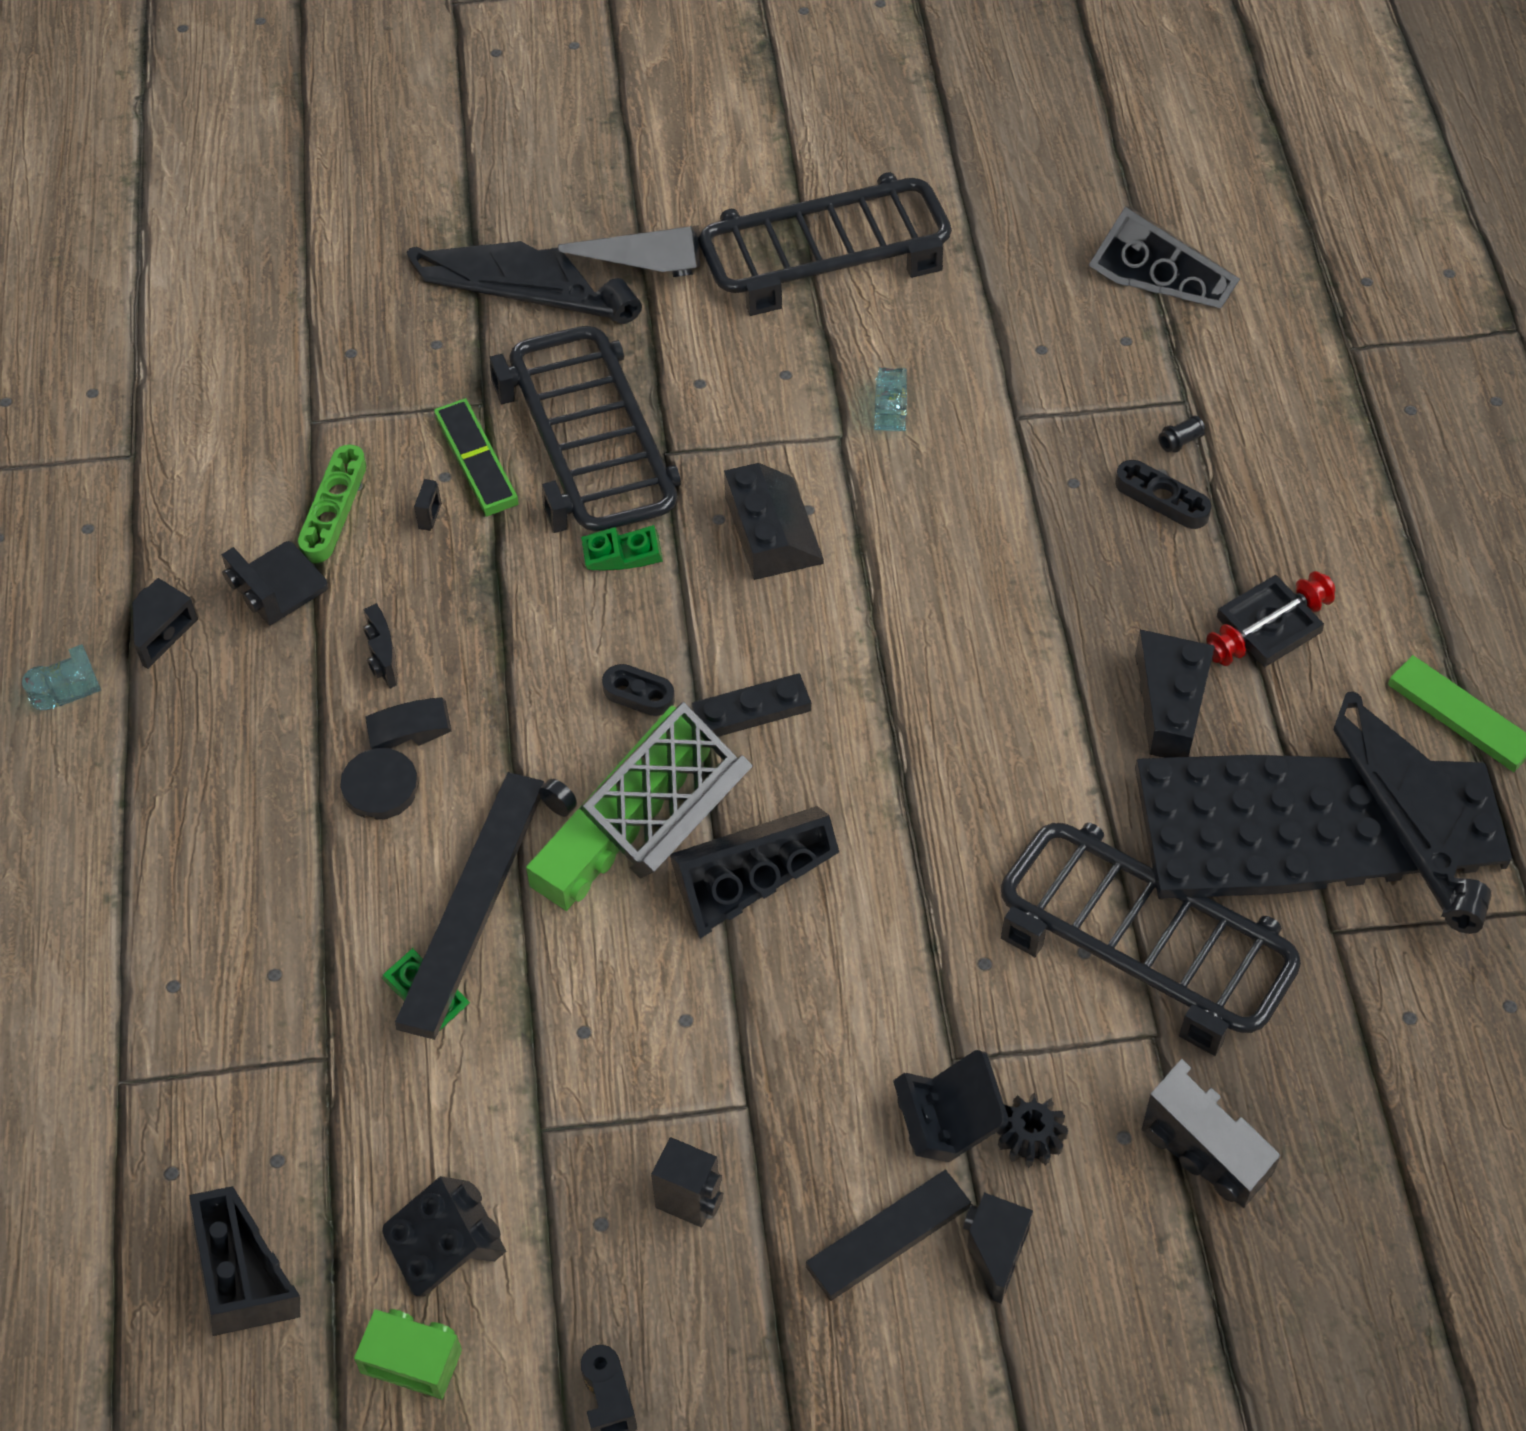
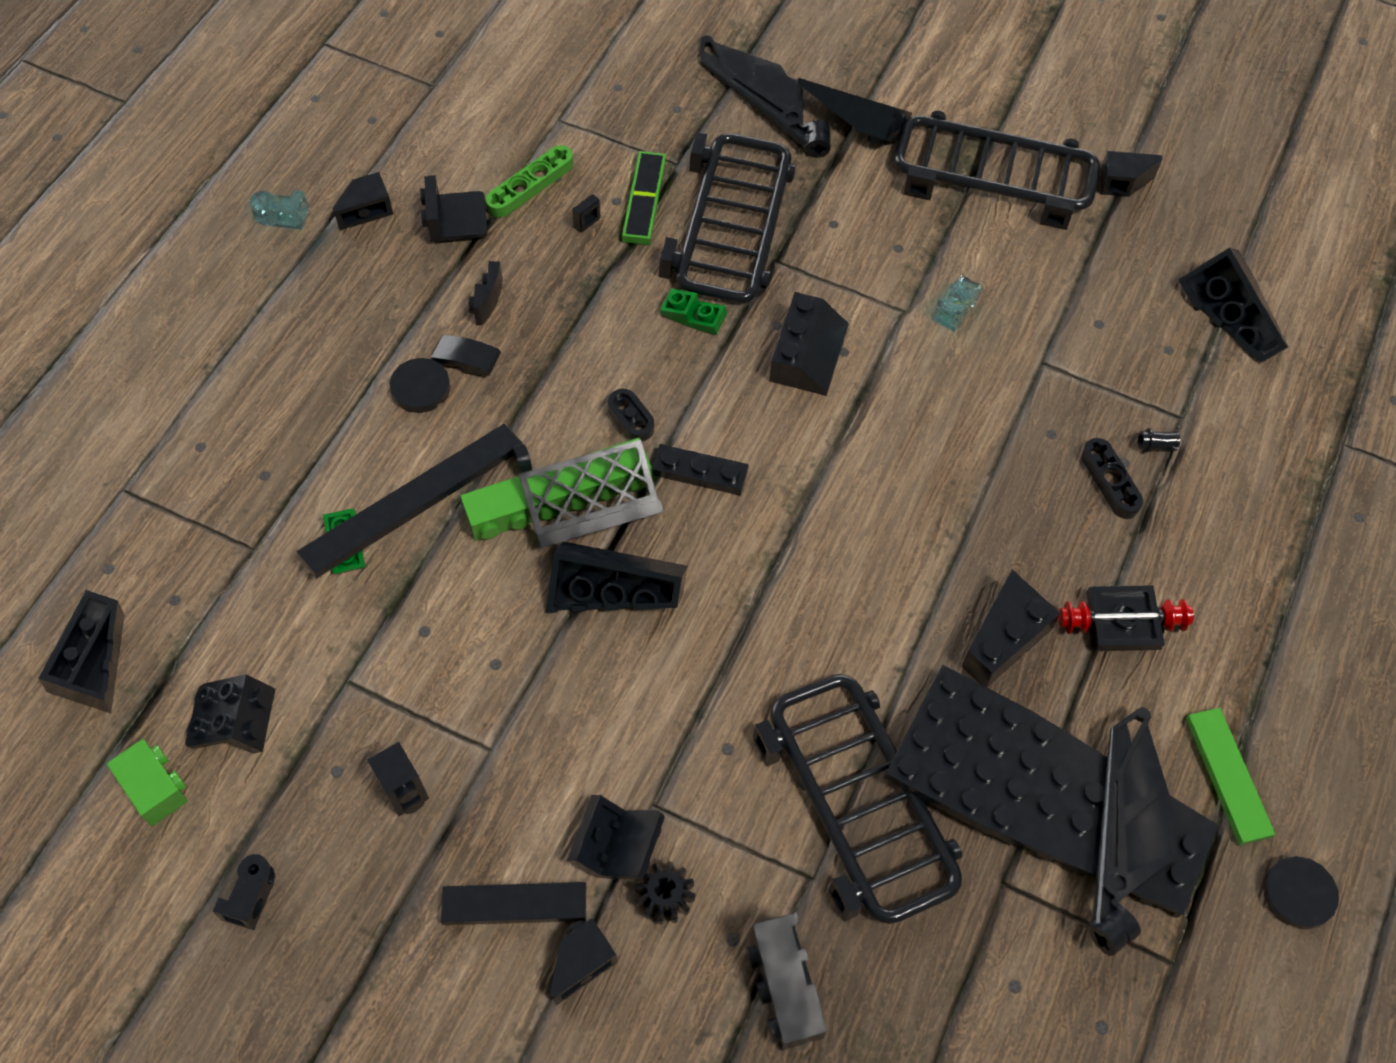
camera: 30 degrees right, 5 degrees up
(963, 181) = (1127, 172): none -> black slope

